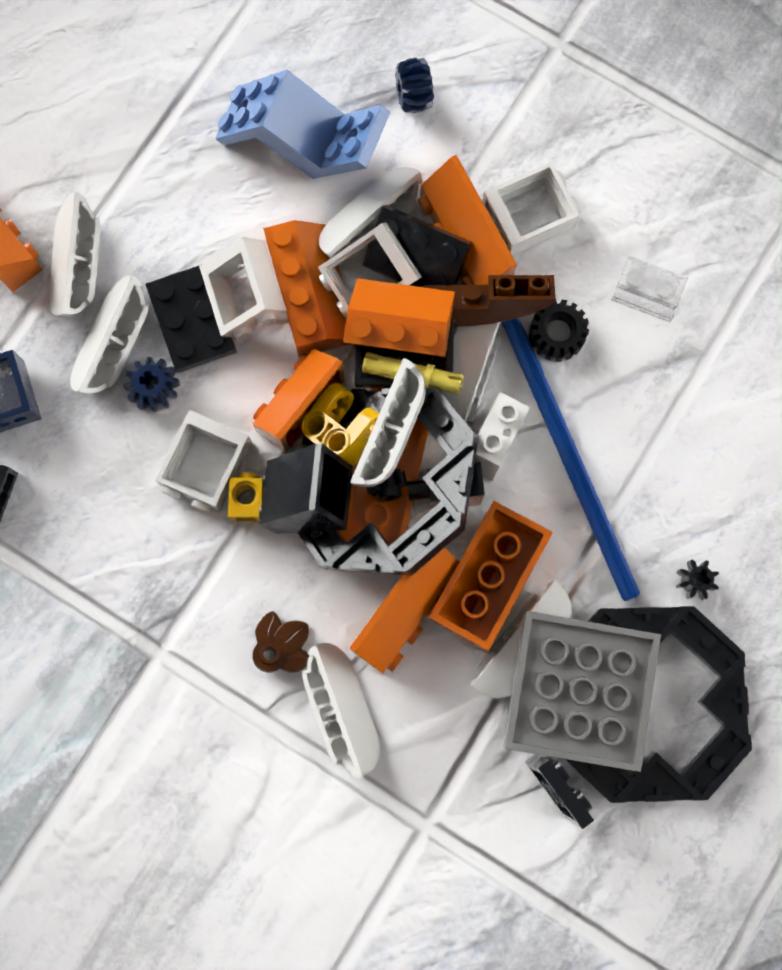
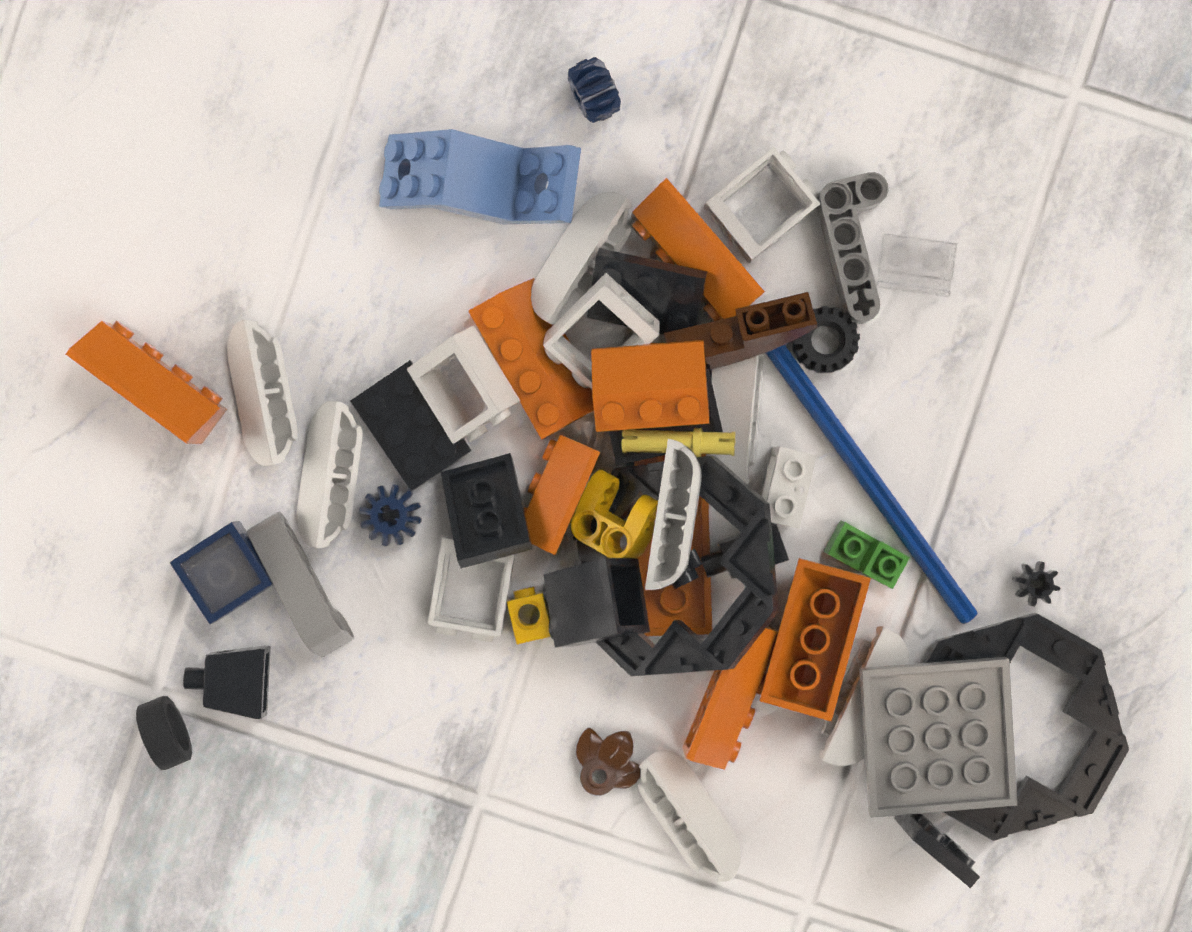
camera: 10 degrees left, 10 degrees up
(55, 426) = (315, 619): none -> light grey beam
(232, 396) = (486, 511): none -> black plate
(547, 512) = (866, 554): none -> bright green slope
(600, 264) = (856, 251): none -> light grey beam

